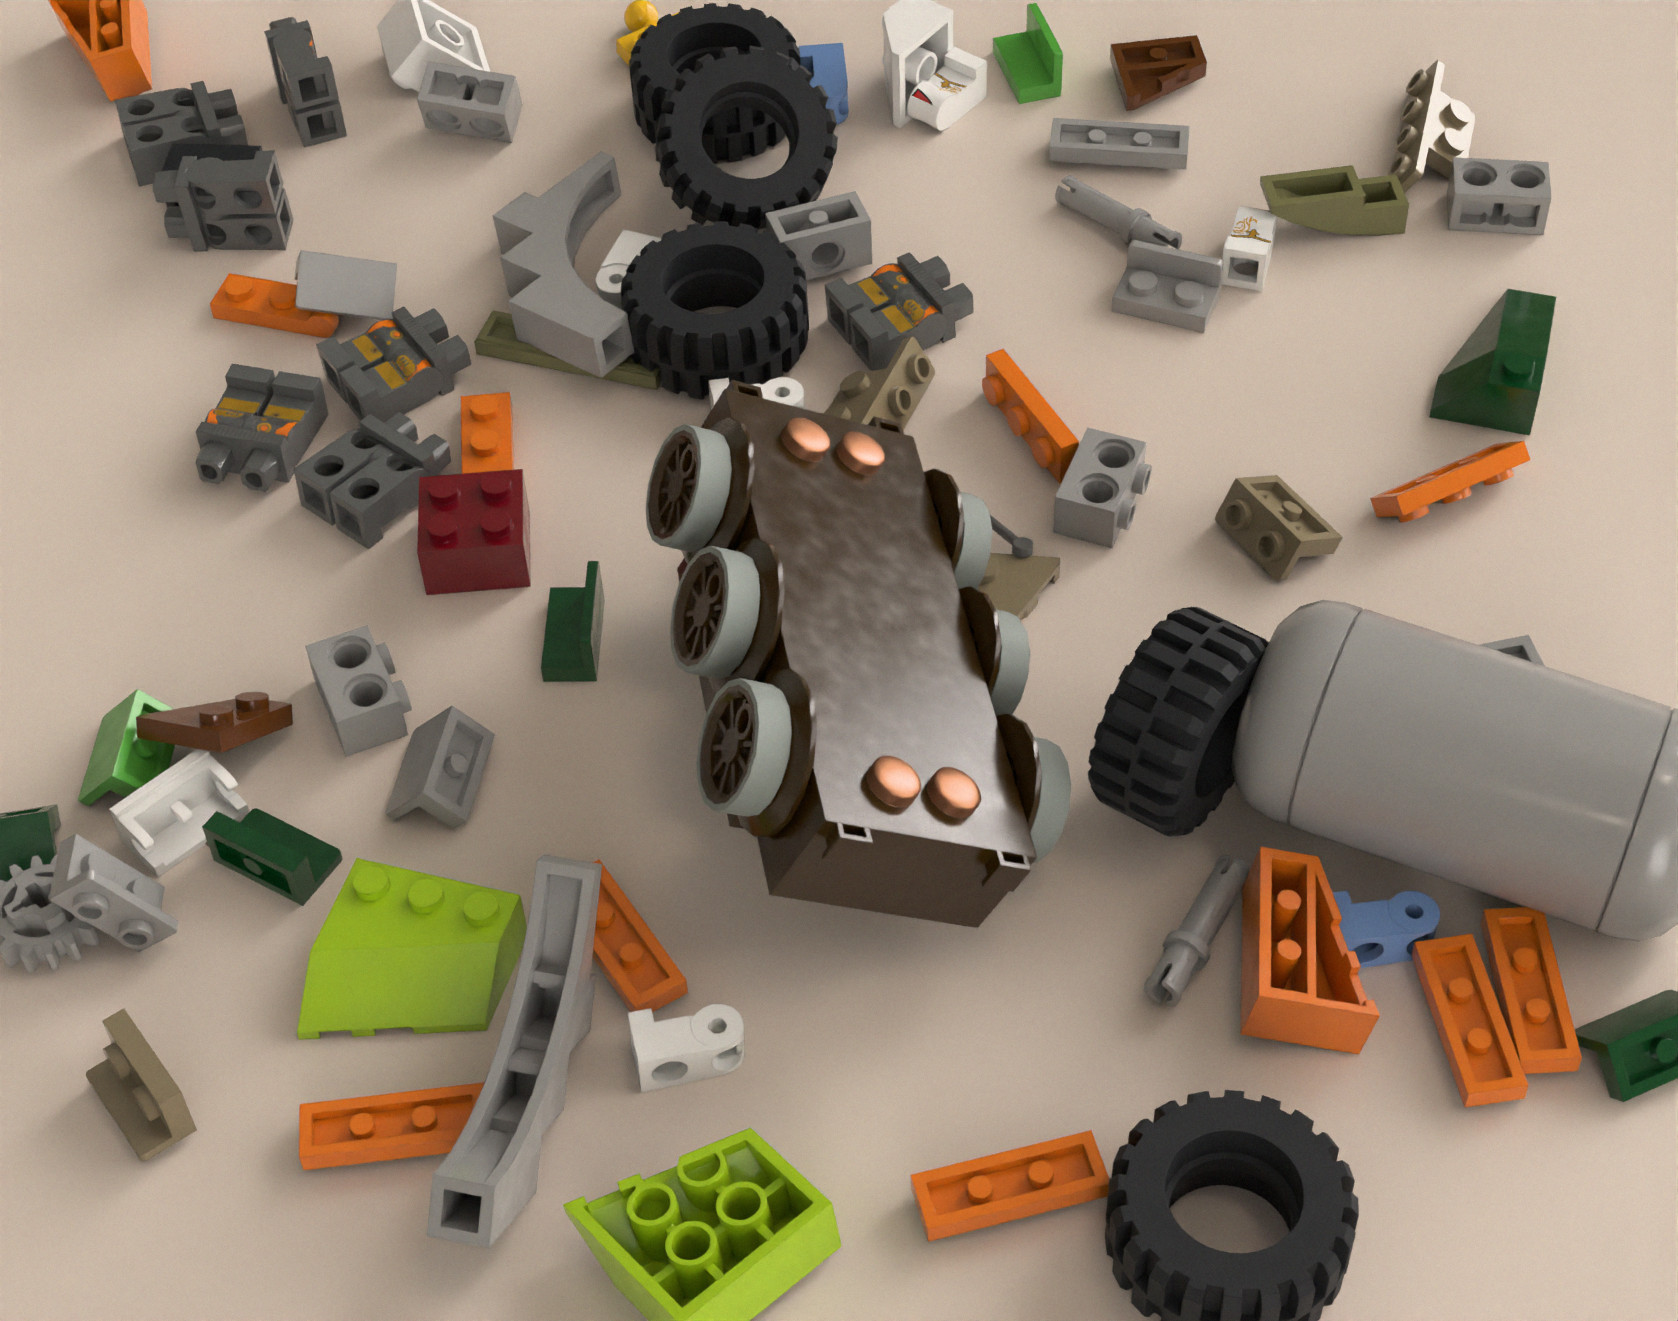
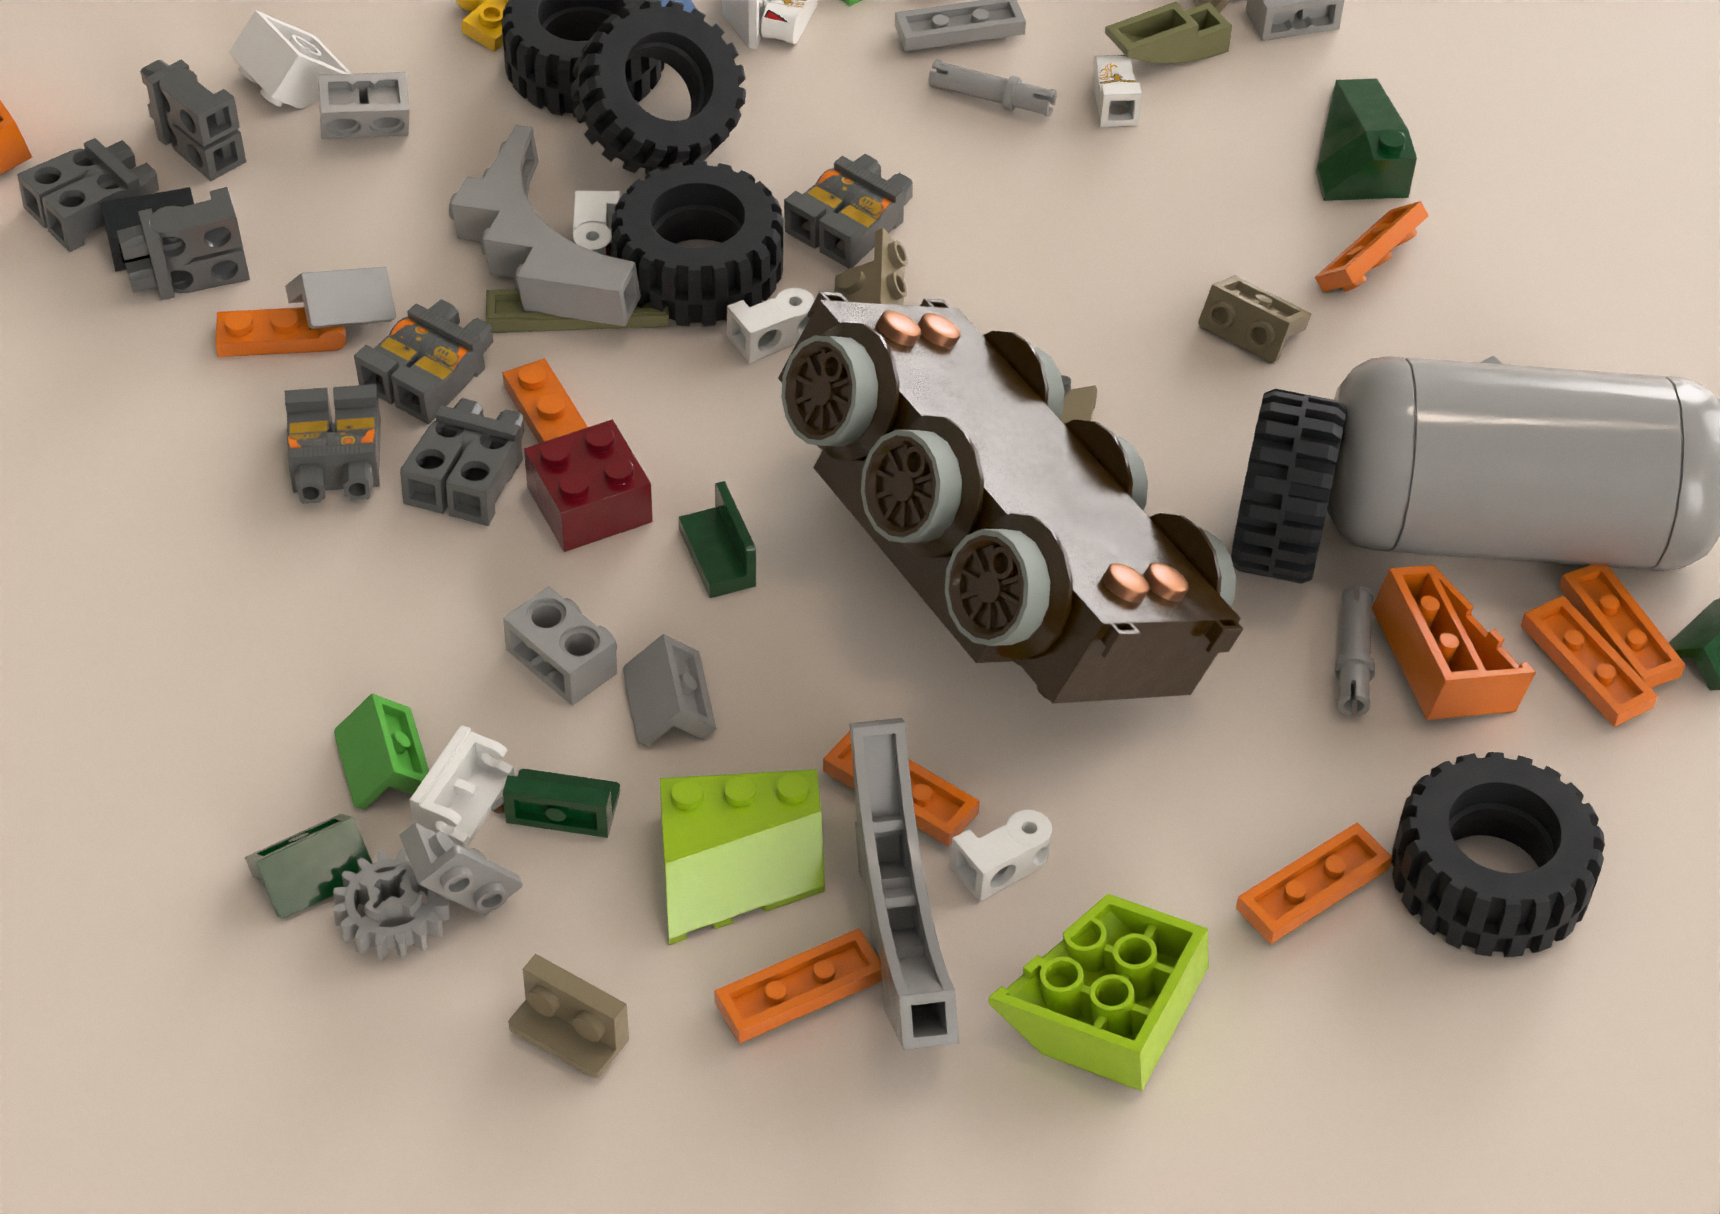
camera: 25 degrees left, 0 degrees up
(217, 724) = (460, 704): reddish brown wing -> none
(825, 234) = (764, 149): light grey brick -> none
(1029, 414) = (1011, 273): orange plate -> none
(1101, 488) = (1100, 319): light grey brick -> none
(1169, 286) = (1065, 137): light grey bracket -> none
(1387, 929) = (1504, 604): medium blue leg -> none

